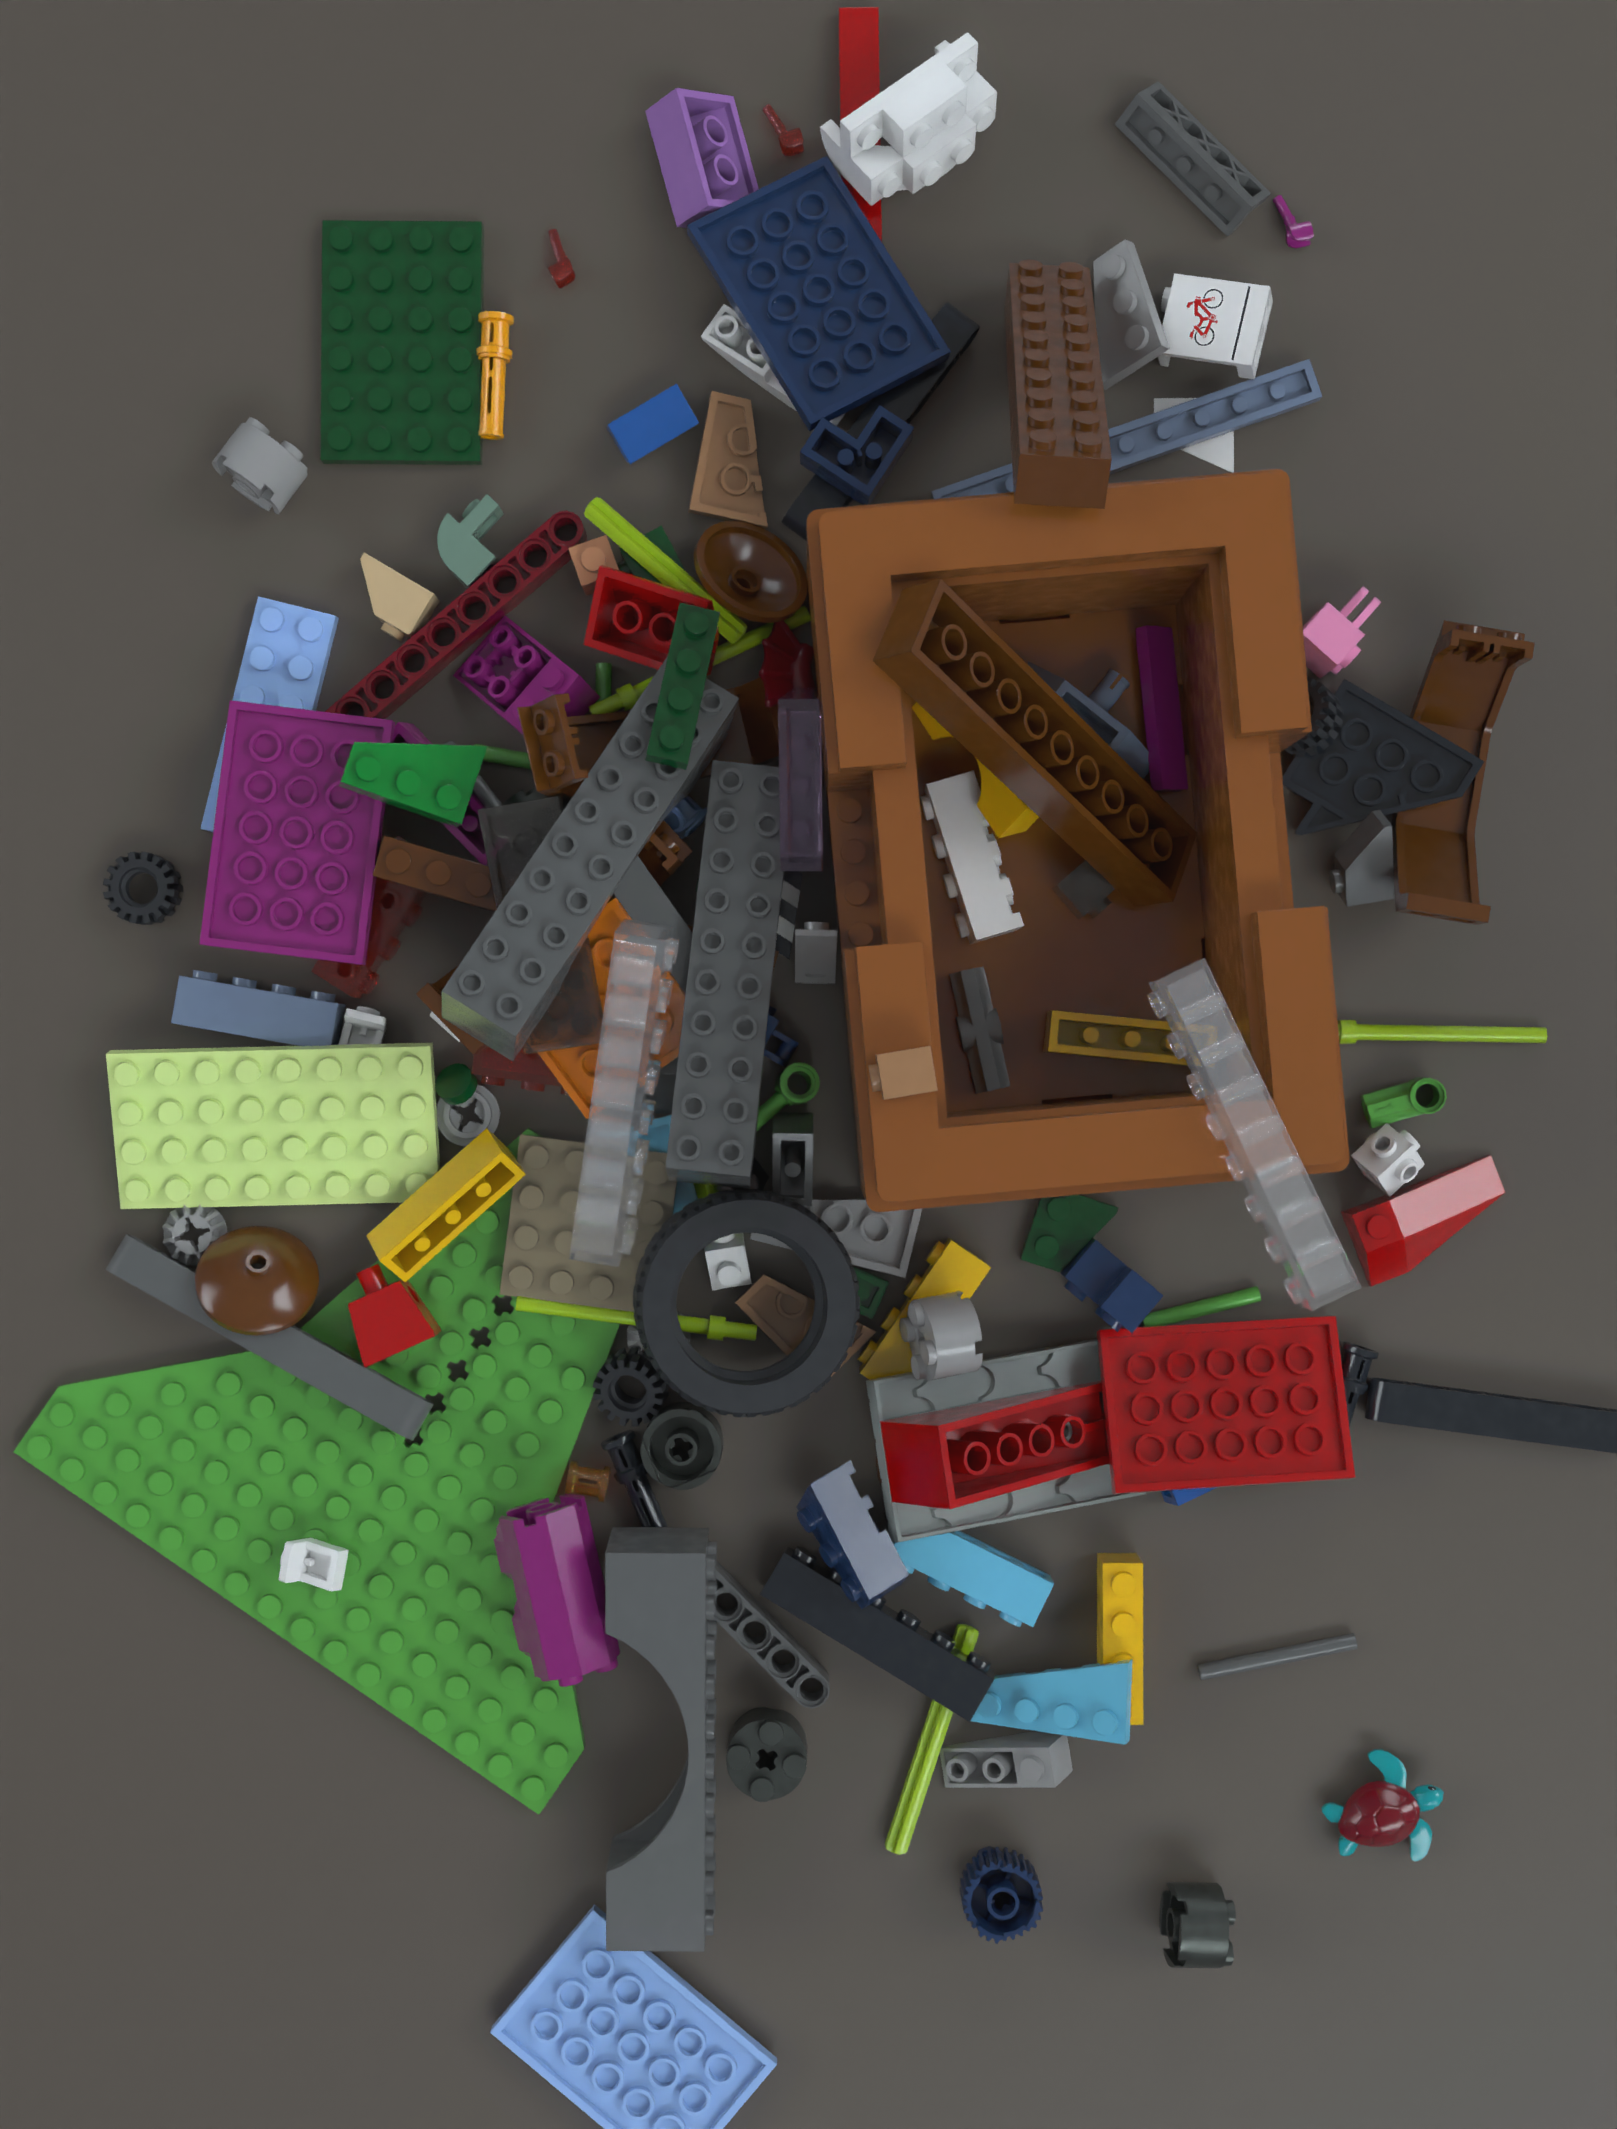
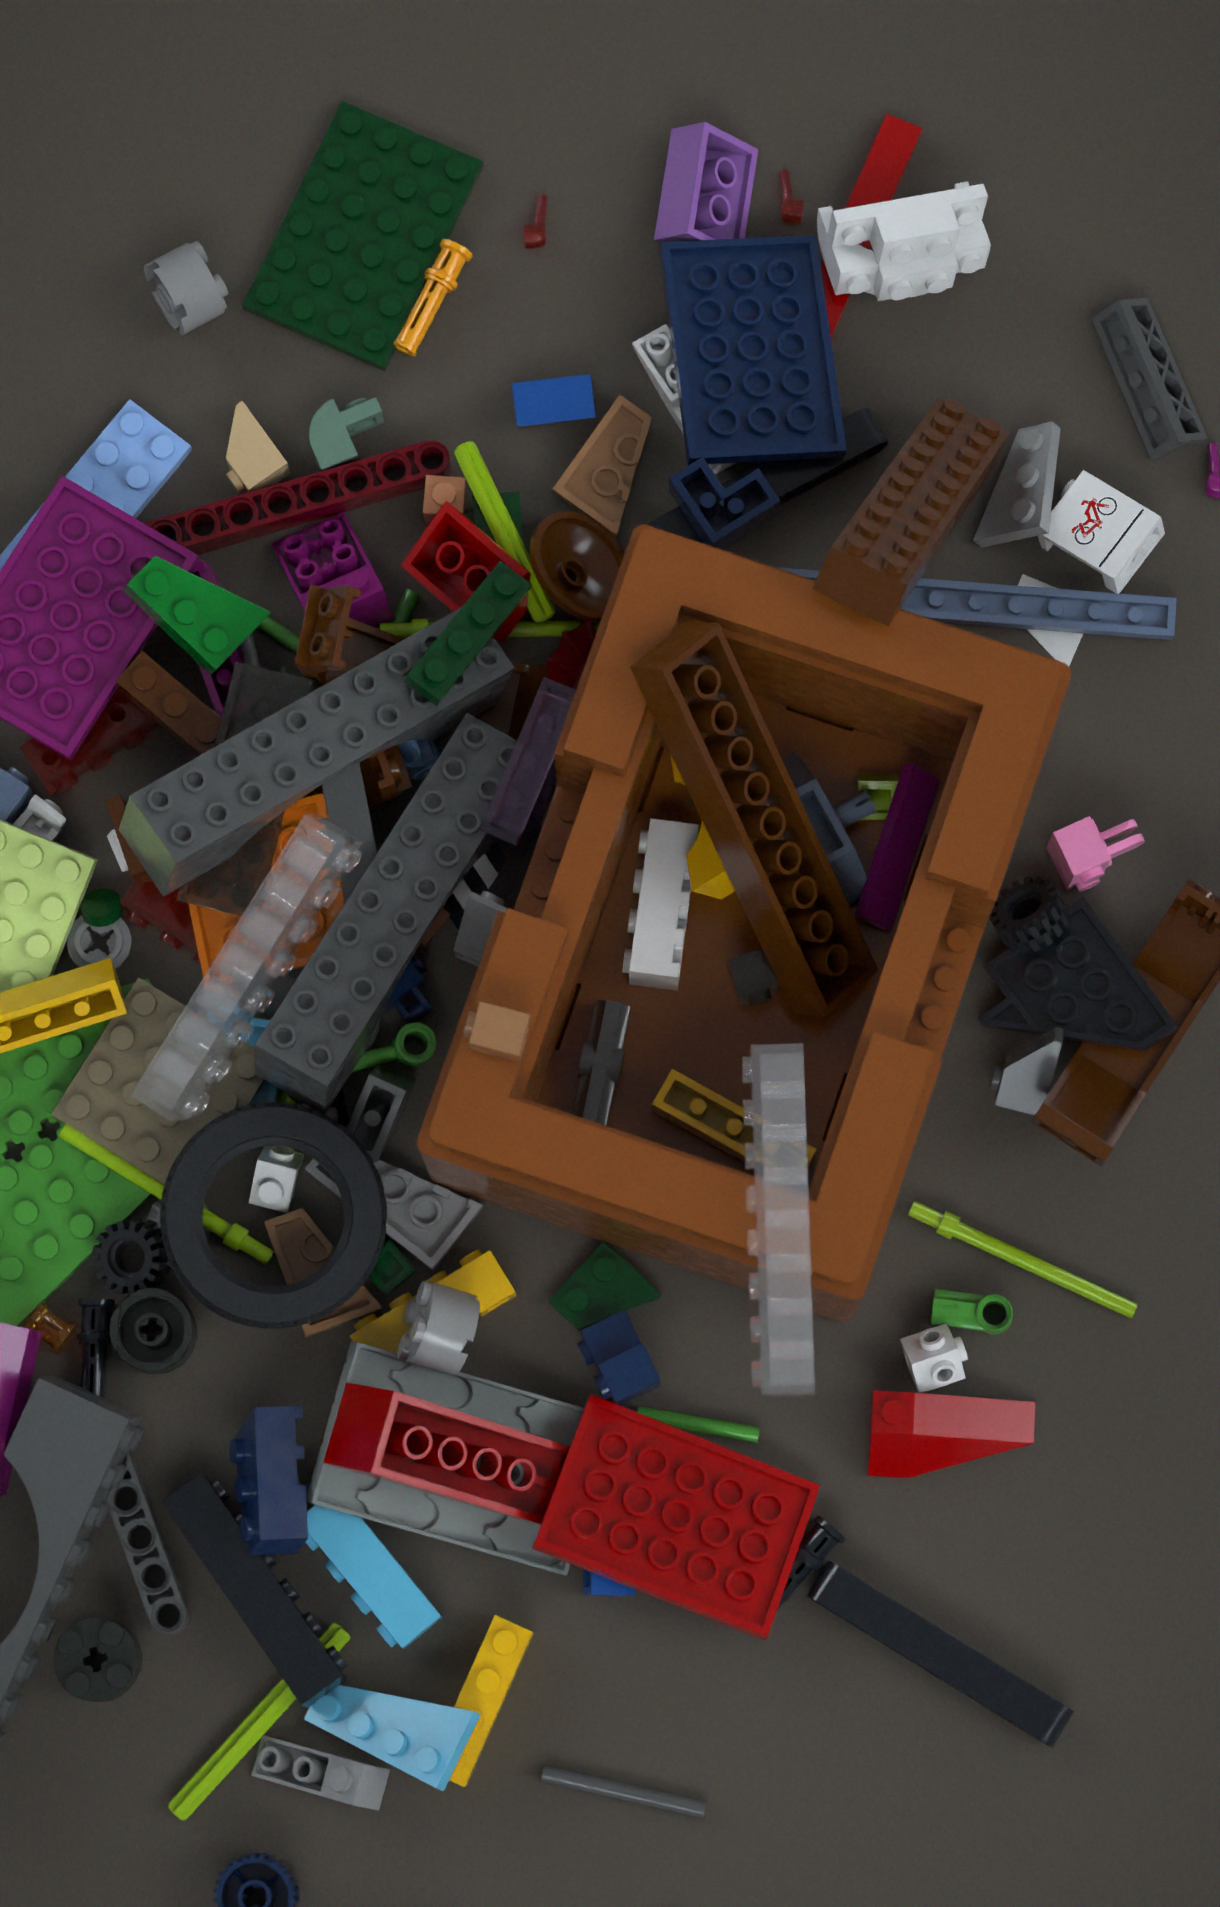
camera: 30 degrees right, 10 degrees down
(1122, 659) = (881, 791): none -> lime slope

